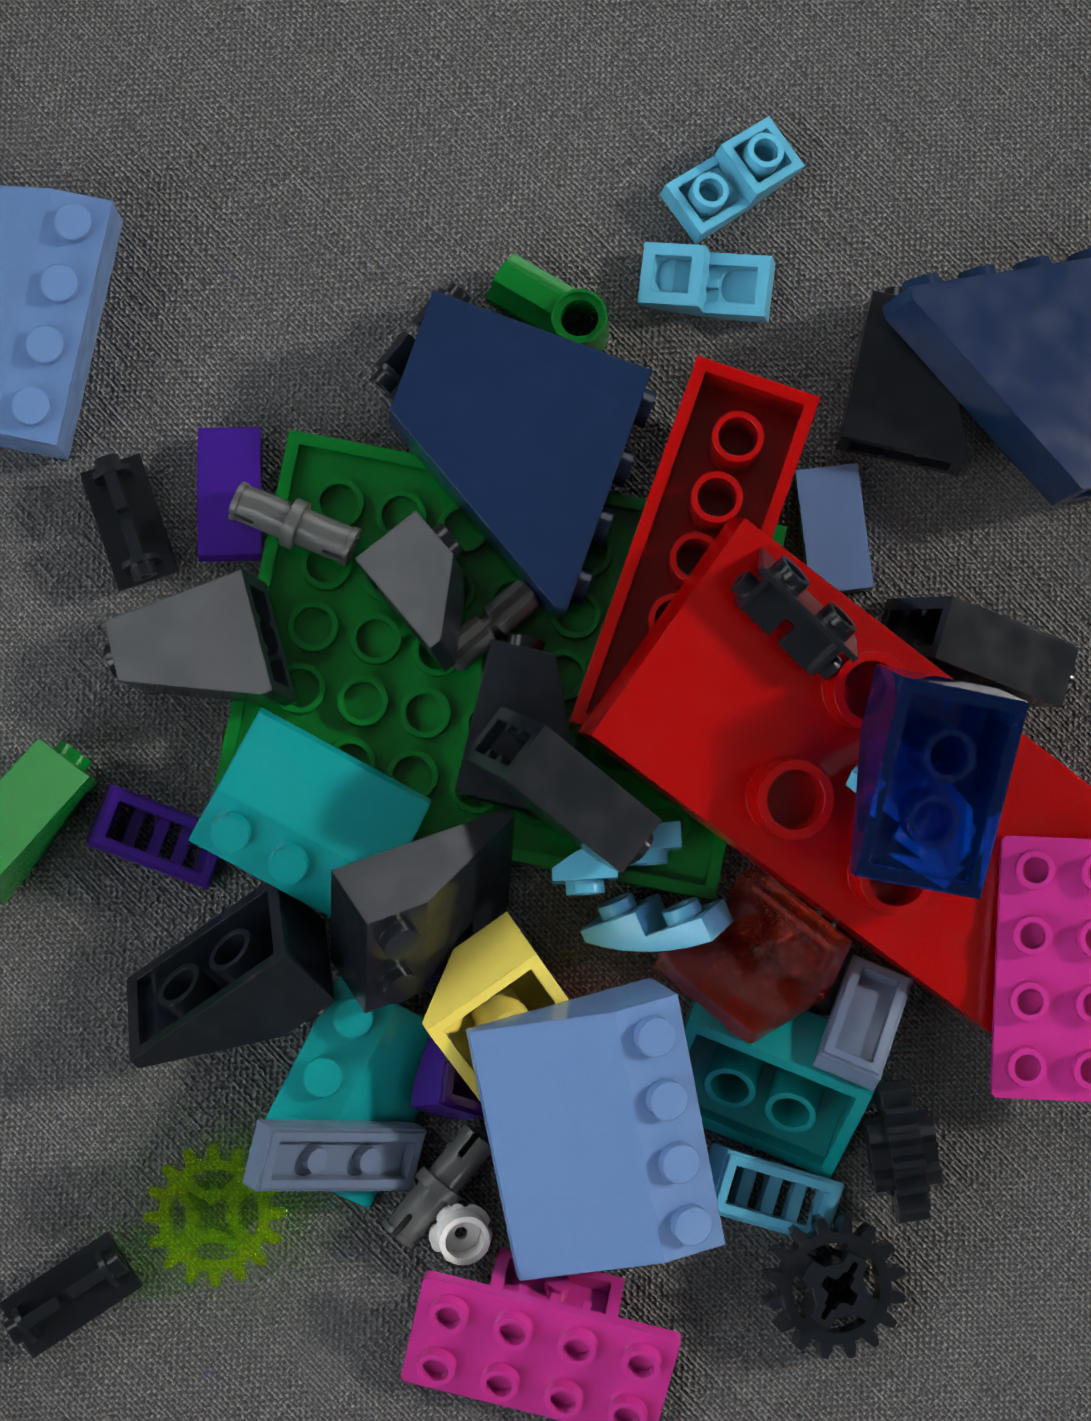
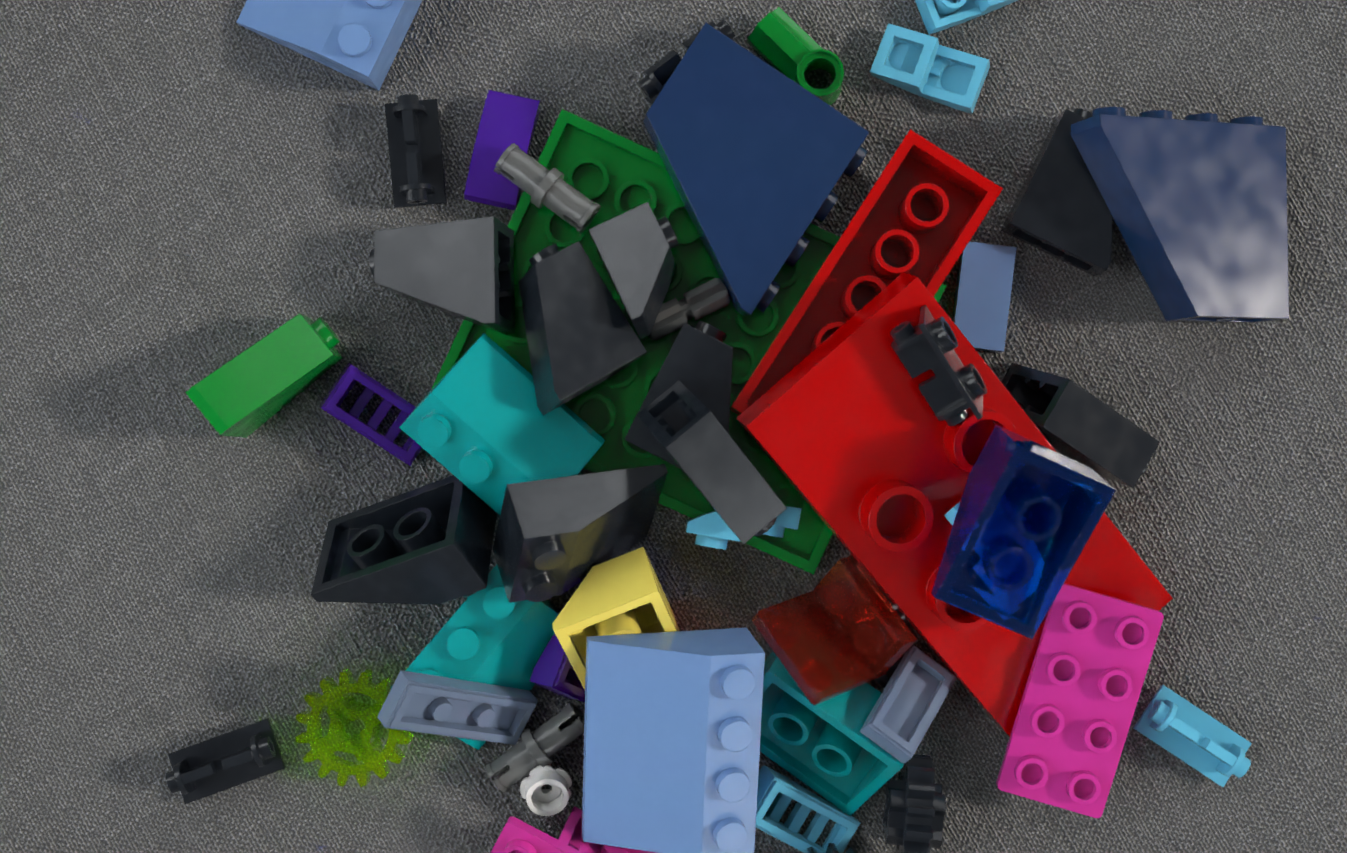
camera: 15 degrees right, 5 degrees up
(363, 675) = (572, 326): none -> black slope
(649, 927) = (754, 584): medium azure slope -> none

